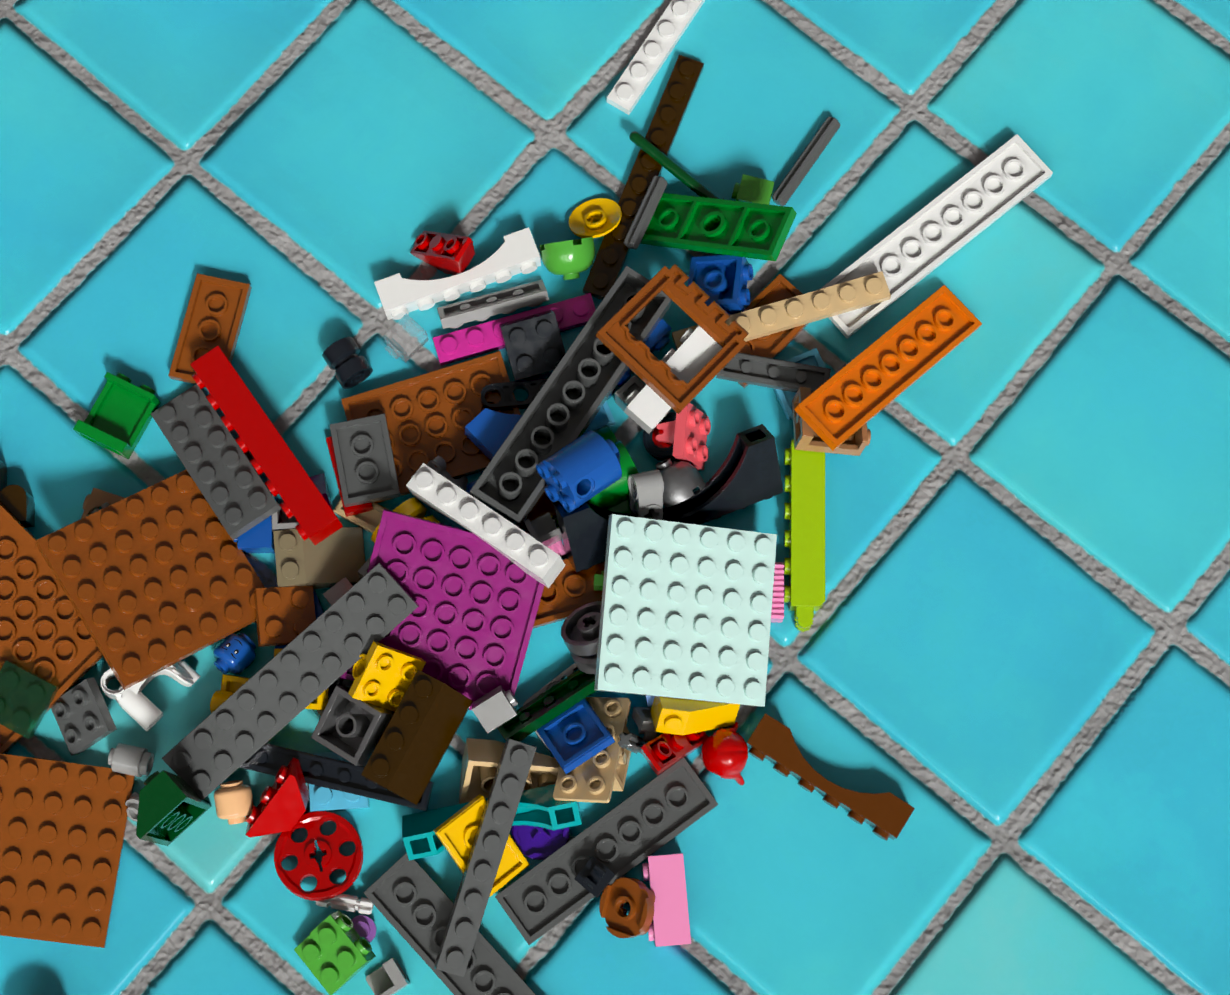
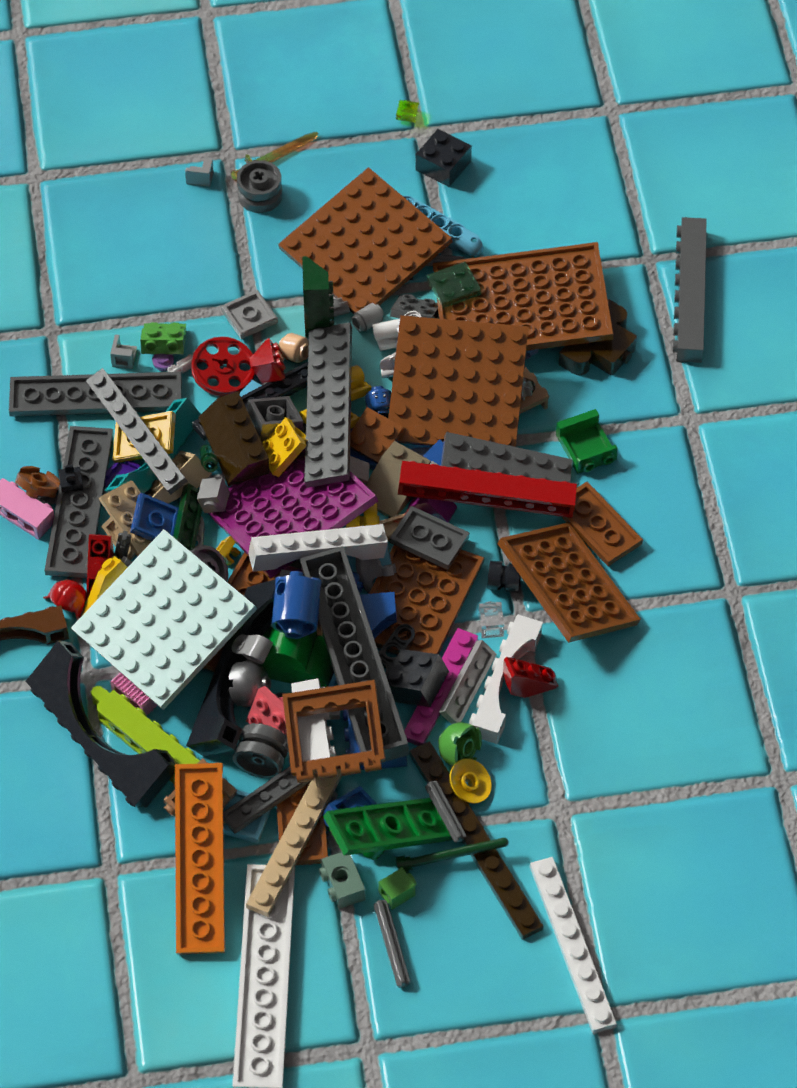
camera: 130 degrees right, 20 degrees down
(226, 892) = (249, 314): none -> light grey plate
(308, 294) = (568, 582): none -> dark orange plate
(460, 745) = (208, 458): none -> dark green pin
(542, 651) = (226, 547): none -> yellow tile
(731, 411) = (261, 750): none -> dark grey wheel
(789, 261) = (346, 892): none -> sand green brick
(833, 661) = (58, 686): none -> black arch

